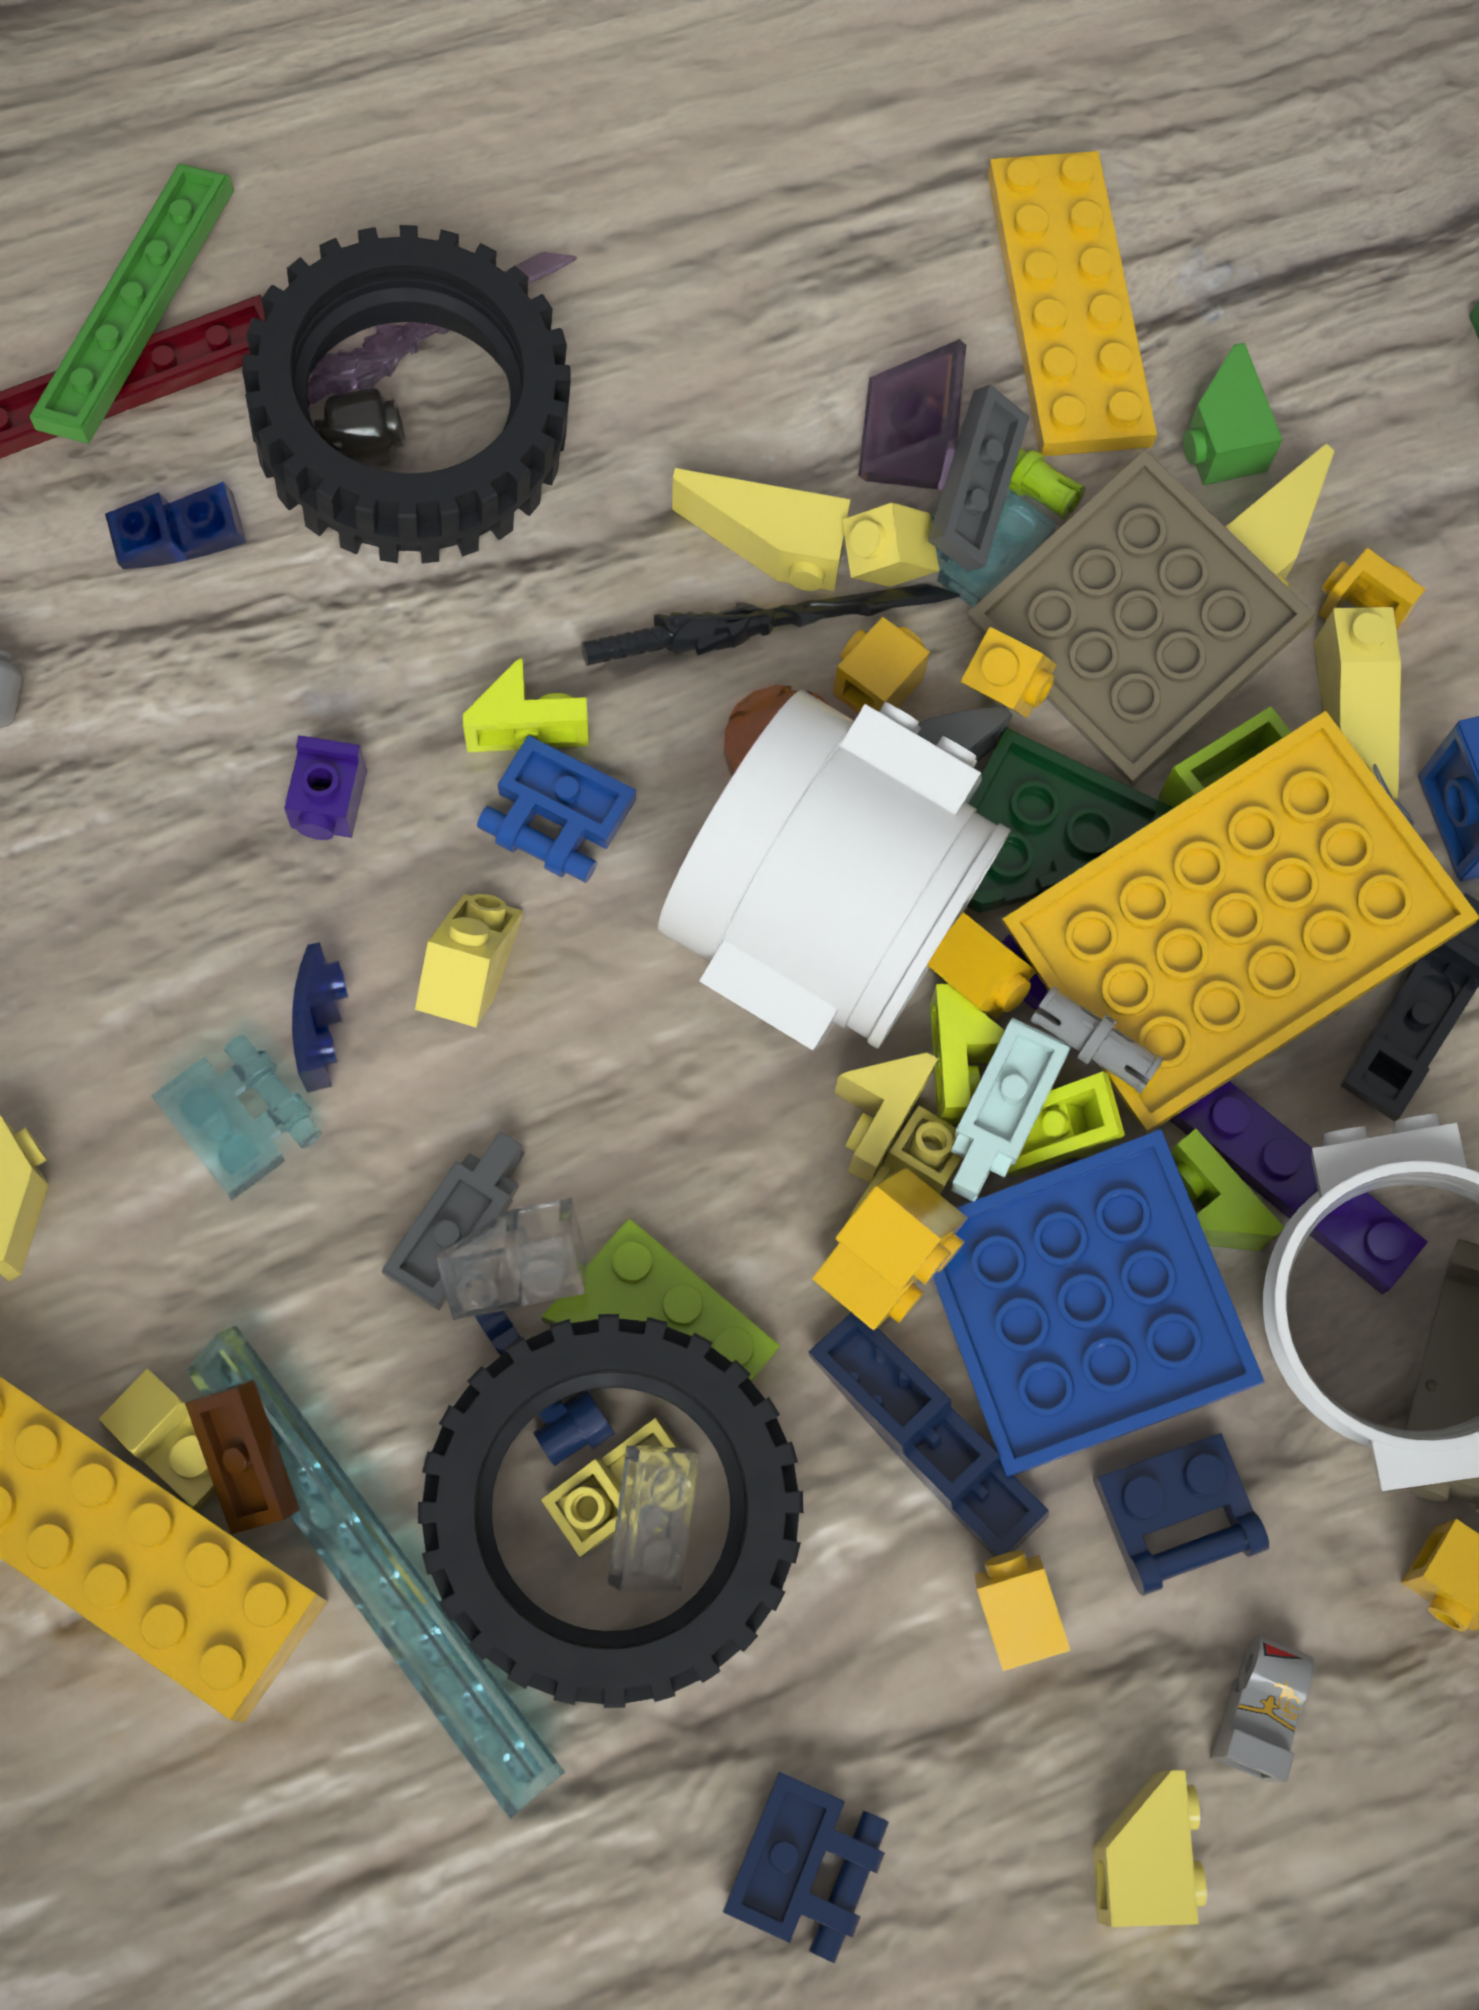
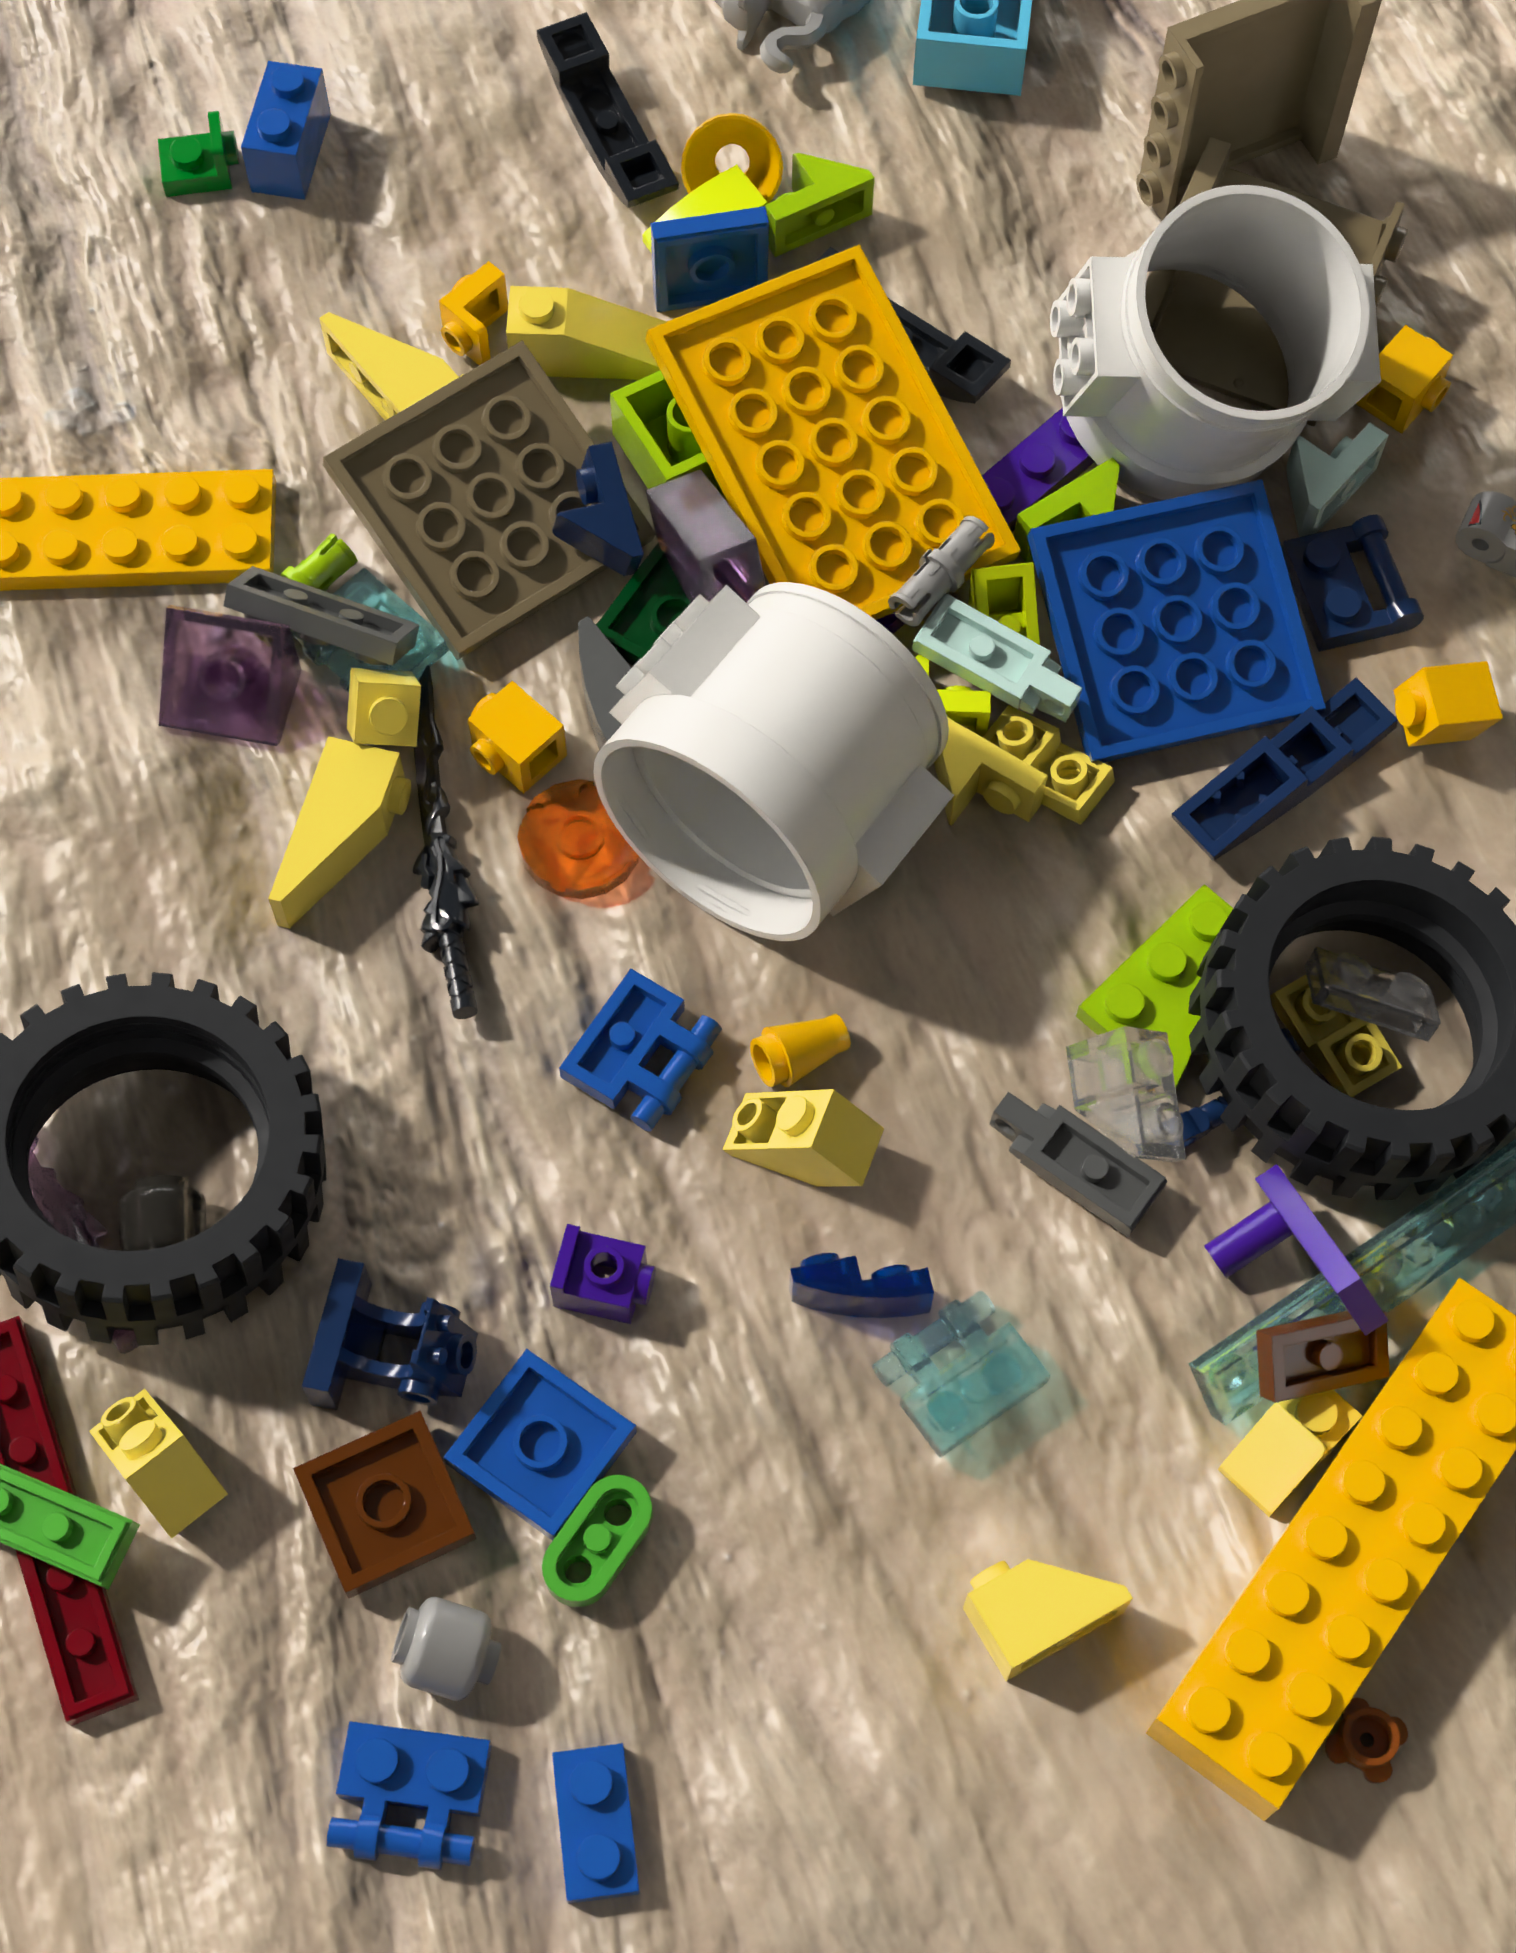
camera: 80 degrees left, 5 degrees down
(79, 809) = (595, 1541): none -> bright green plate
(111, 633) = (384, 1504): none -> reddish brown plate
(145, 451) = (157, 1462): none -> light yellow slope
(164, 753) = (540, 1444): none -> blue plate
(167, 533) = (252, 1438): clear blue slope -> none
(259, 594) = (354, 1333): none -> dark blue tile
(347, 1443) = (1277, 1221): none -> dark purple piece
(505, 718) = (531, 1083): neon yellow slope -> none
(565, 950) = (795, 1049): none -> yellow cone
(889, 1245) = (1130, 764): yellow brick -> none
(1010, 673) = (543, 612): yellow brick -> none
(1084, 816) = (704, 538): none -> slope
(1117, 725) = (607, 526): none -> dark blue slope
(1233, 424) = (265, 401): bright green slope -> none
(1296, 1480) = (1324, 481): none -> light aqua slope

